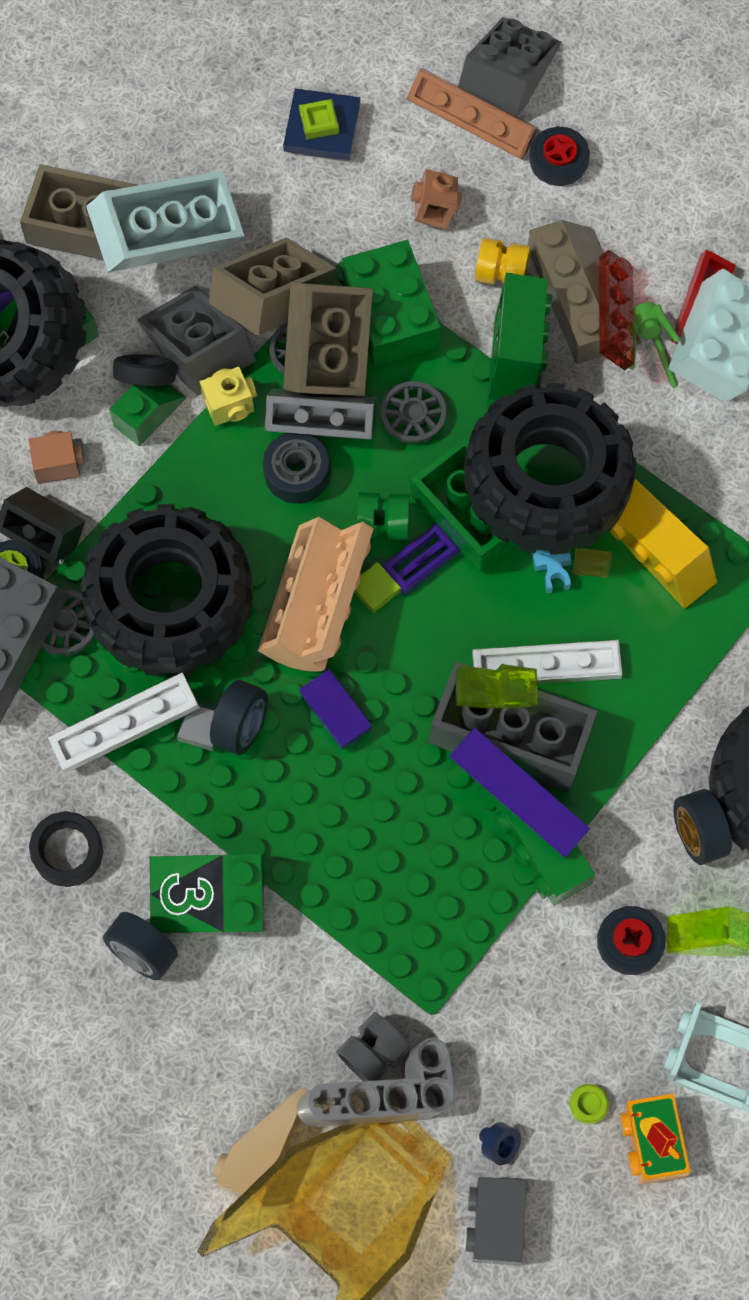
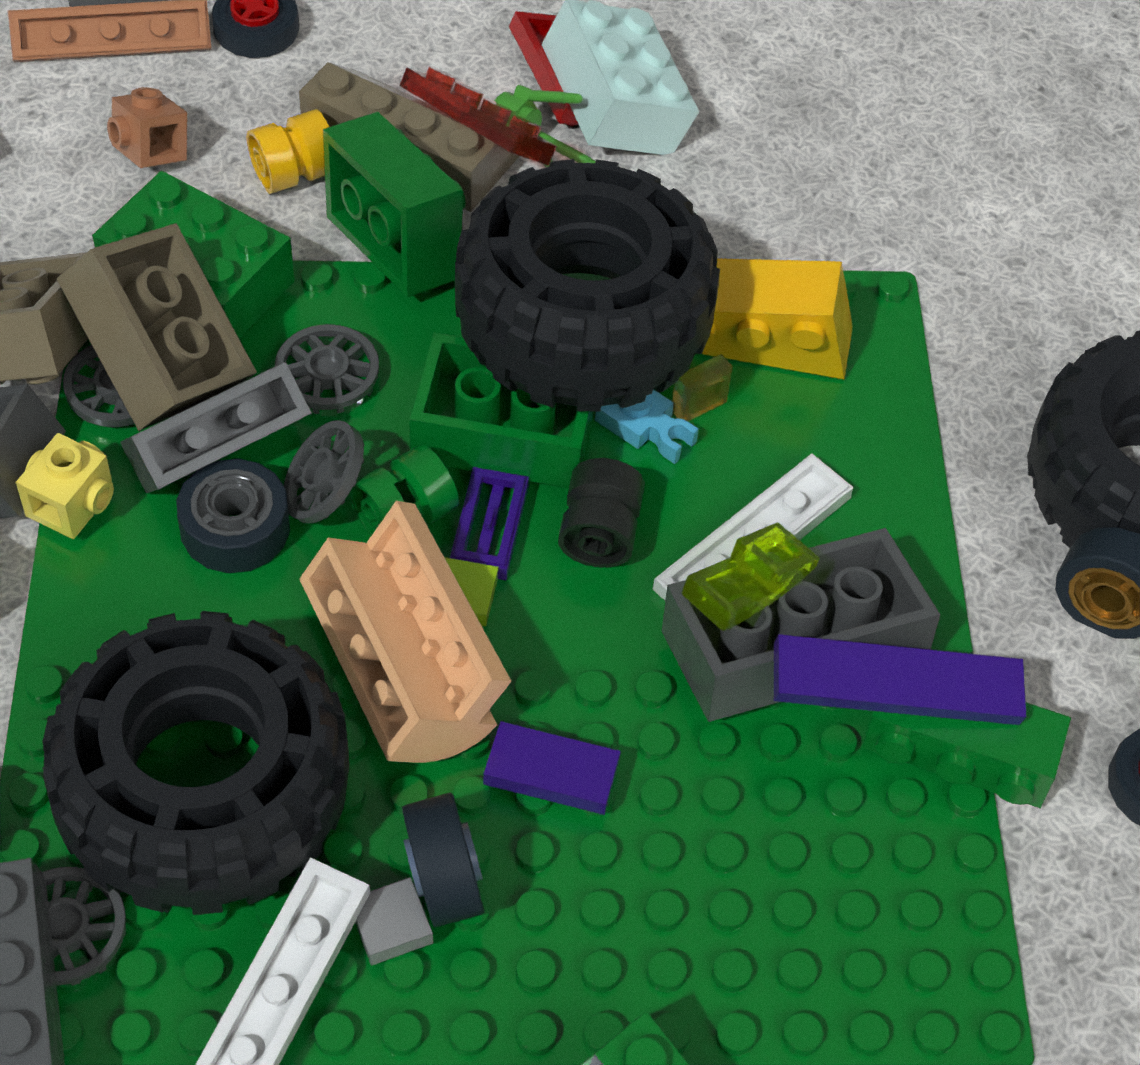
camera: 45 degrees left, 15 degrees down
(353, 475) = (324, 472): none -> dark grey wheel
(479, 591) = (601, 512): none -> pearl dark grey wheel

